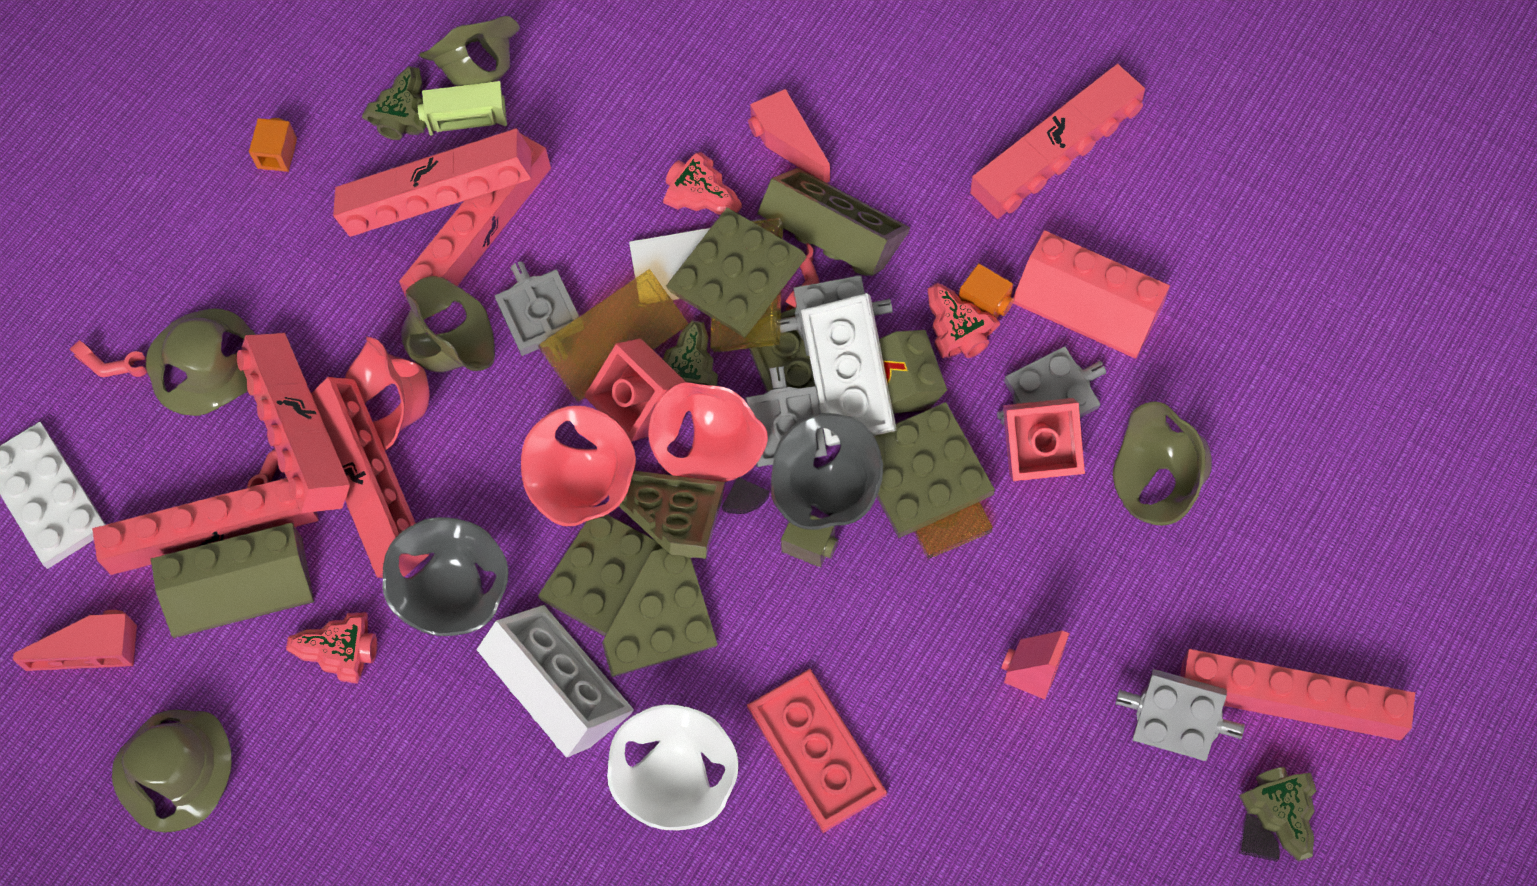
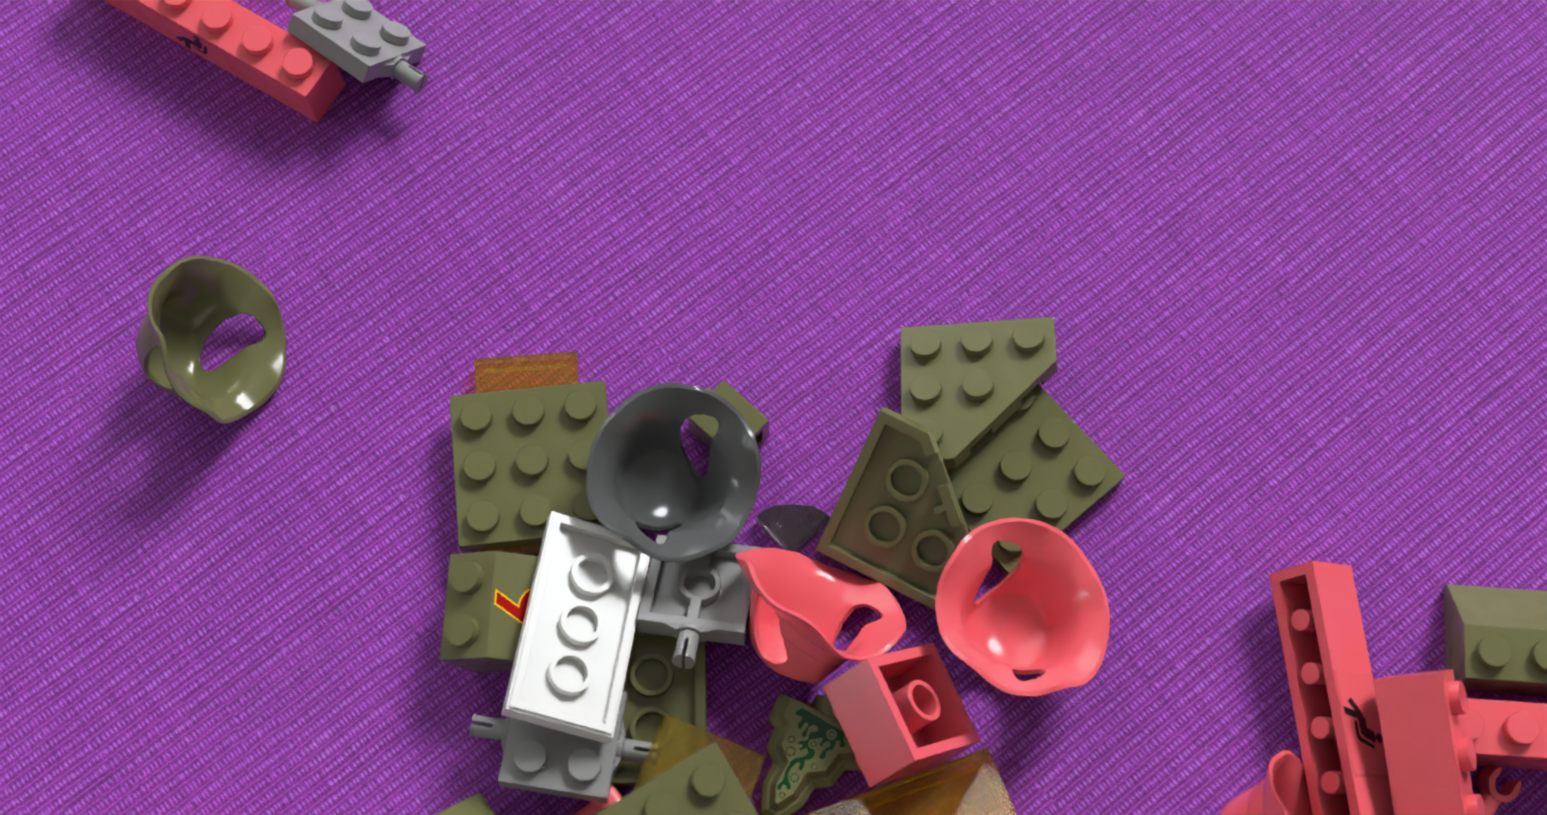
camera: 165 degrees left, 5 degrees up
(337, 647) = (1423, 497): coral rock -> none
(447, 591) = (1256, 510): dark grey piece -> none
(554, 679) = (1132, 351): white slope -> none
(671, 782) = (1019, 158): white piece -> none
(816, 750) = (819, 164): coral tile -> none
(958, 323) = (383, 677): coral rock -> none
(987, 291) = (322, 705): orange brick -> none
(1035, 662) = (500, 138): coral slope -> none
(1043, 439) = (350, 435): coral brick -> none
(1054, 379) = (302, 526): light grey plate -> none
(1090, 294) = (174, 650): coral slope -> none

